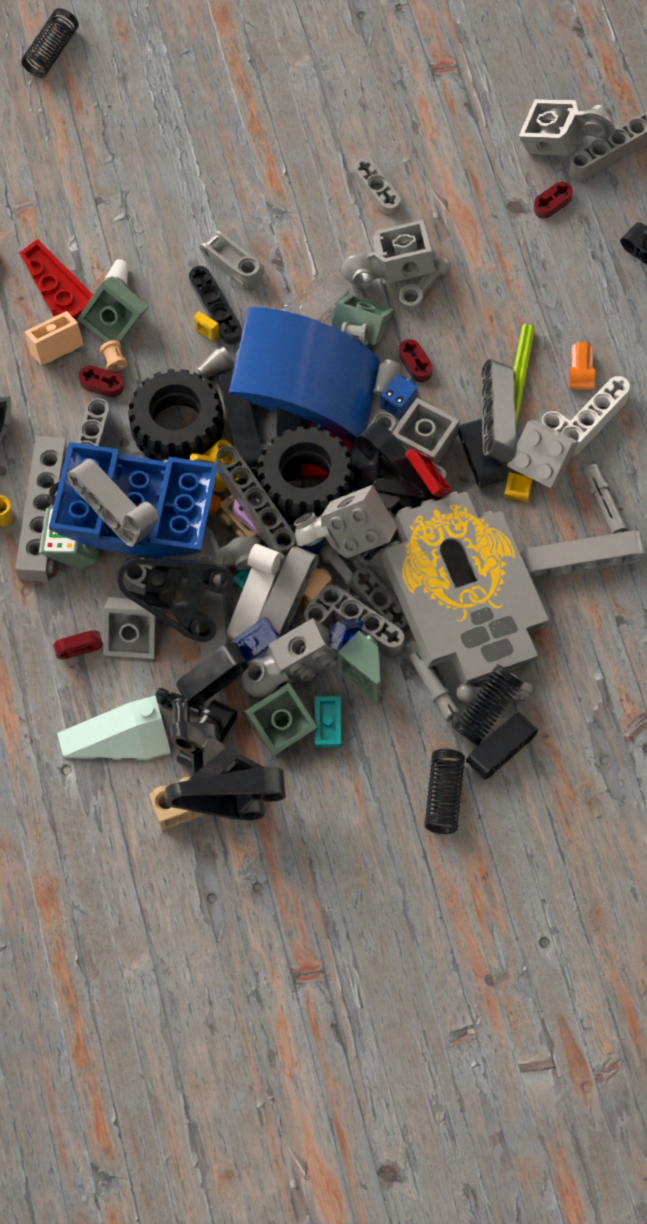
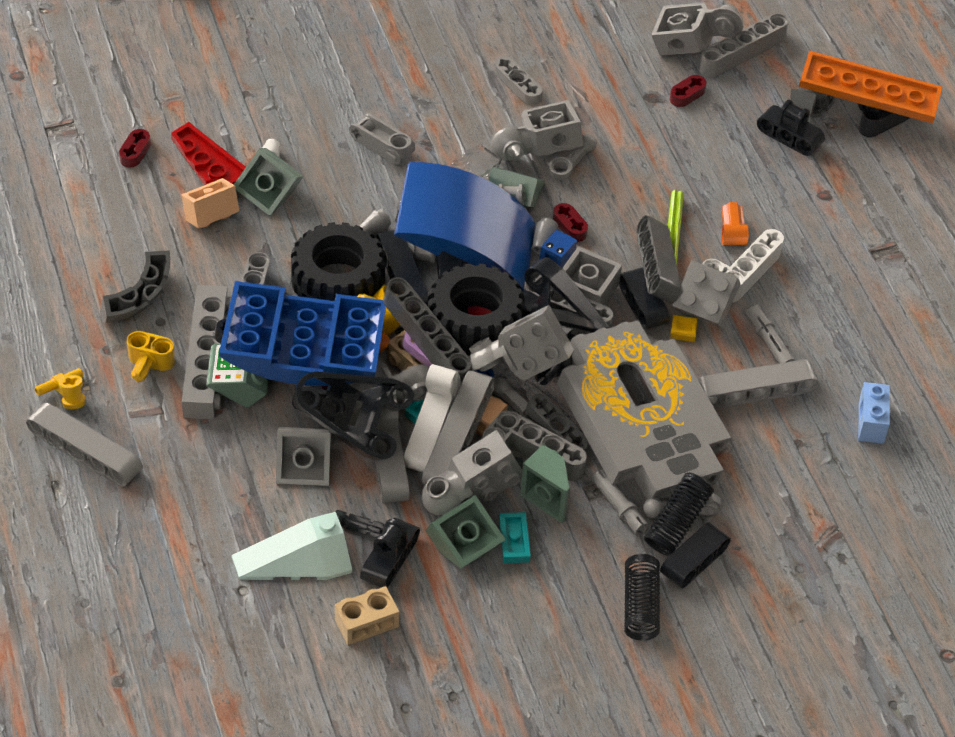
camera: 10 degrees left, 15 degrees down
(78, 644) = (249, 472): dark red beam -> none
(100, 382) = (258, 241): dark red beam -> none
(112, 504) = (295, 342): light grey beam -> none
(113, 356) = (268, 216): light nougat bush -> none
(206, 326) = (361, 193): yellow tile -> none
(212, 674) = (393, 490): black beam -> none
(212, 788) = (400, 560): black connector -> none
(216, 304) = (371, 176): black beam -> none
(256, 638) = (432, 460): clear blue plate -> none
(344, 631) = (526, 445): clear blue plate -> none
(429, 473) = (598, 303): red tile -> none

